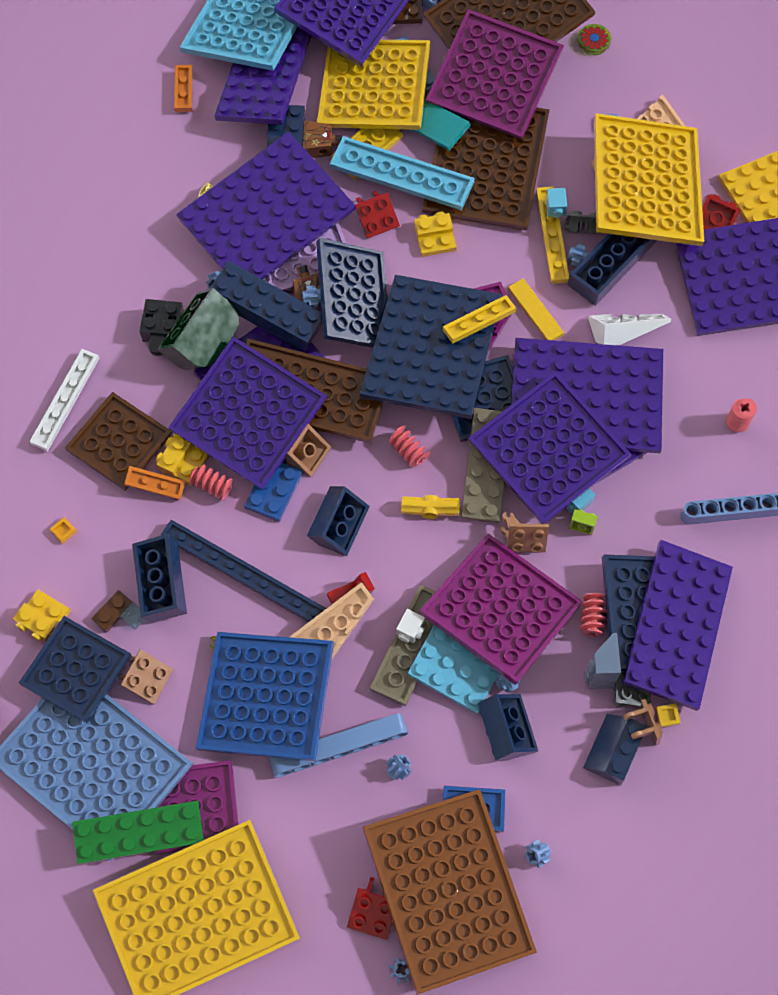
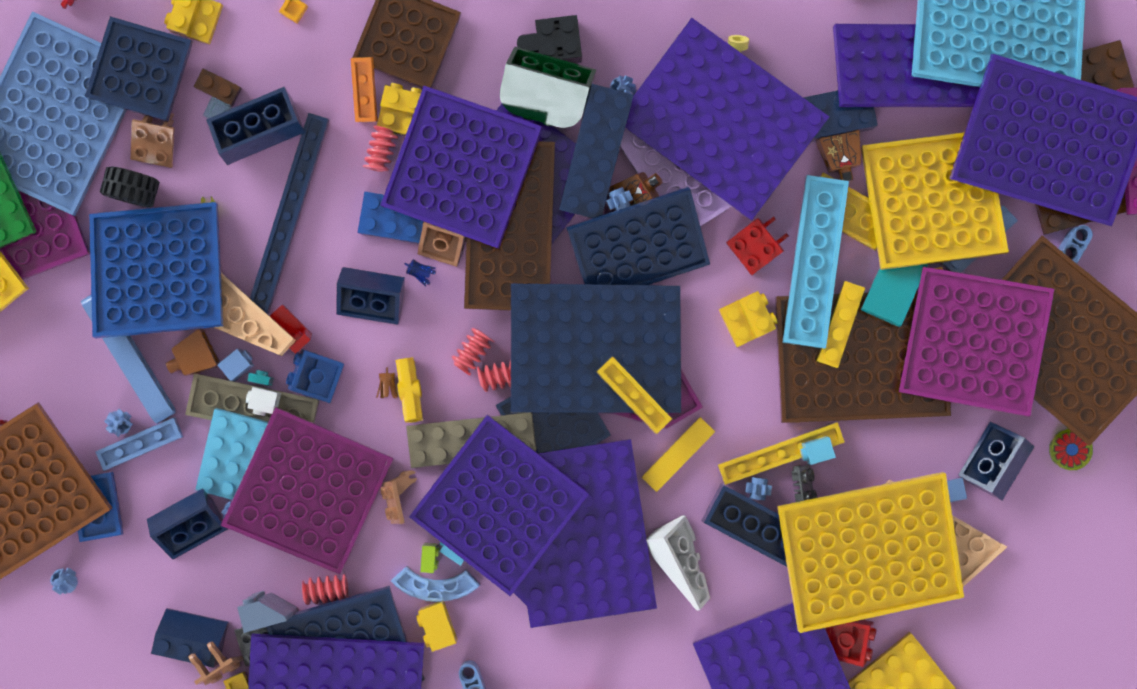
camera: 75 degrees right, 20 degrees up
(182, 700) = (129, 186): none -> black tyre
(323, 477) = (420, 271): none -> clear blue piece
(352, 684) = (193, 355): none -> dark orange torso
(370, 648) = (236, 364): none -> medium blue brick
(388, 630) = (261, 377): none -> teal plate
(397, 582) = (314, 375): none -> blue plate
(416, 522) = (386, 380): none -> dark orange piece
(423, 754) = (139, 444): none -> medium blue plate
(435, 430) = (495, 376): none -> coral piece
(439, 157) = (841, 323): none -> yellow plate
(592, 87) = (996, 460): none -> dark blue slope
(612, 528) = (432, 589): none -> light blue tile
(644, 529) = (437, 626): none -> yellow brick

